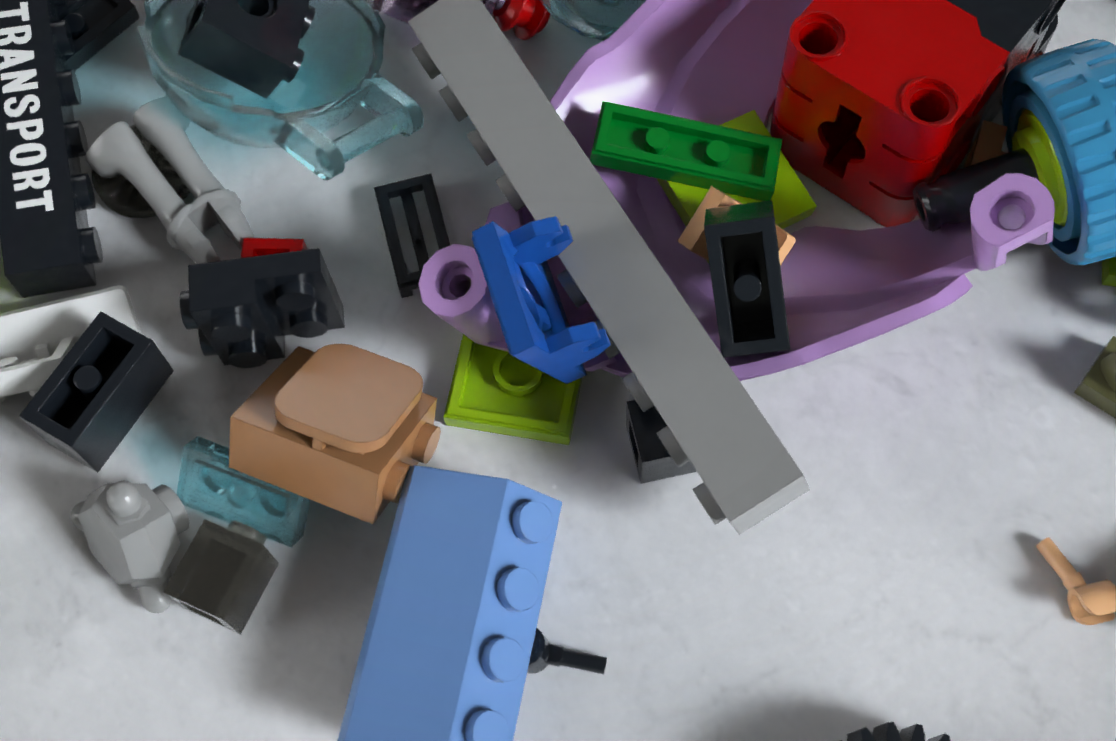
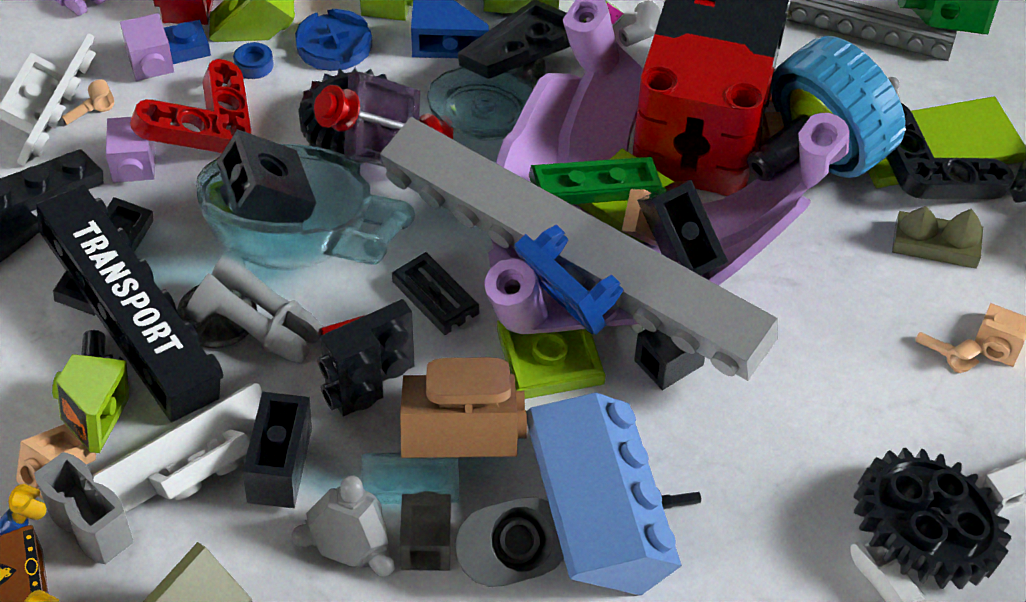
camera: 30 degrees left, 15 degrees down
(294, 644) = (509, 542): none -> dark grey piece

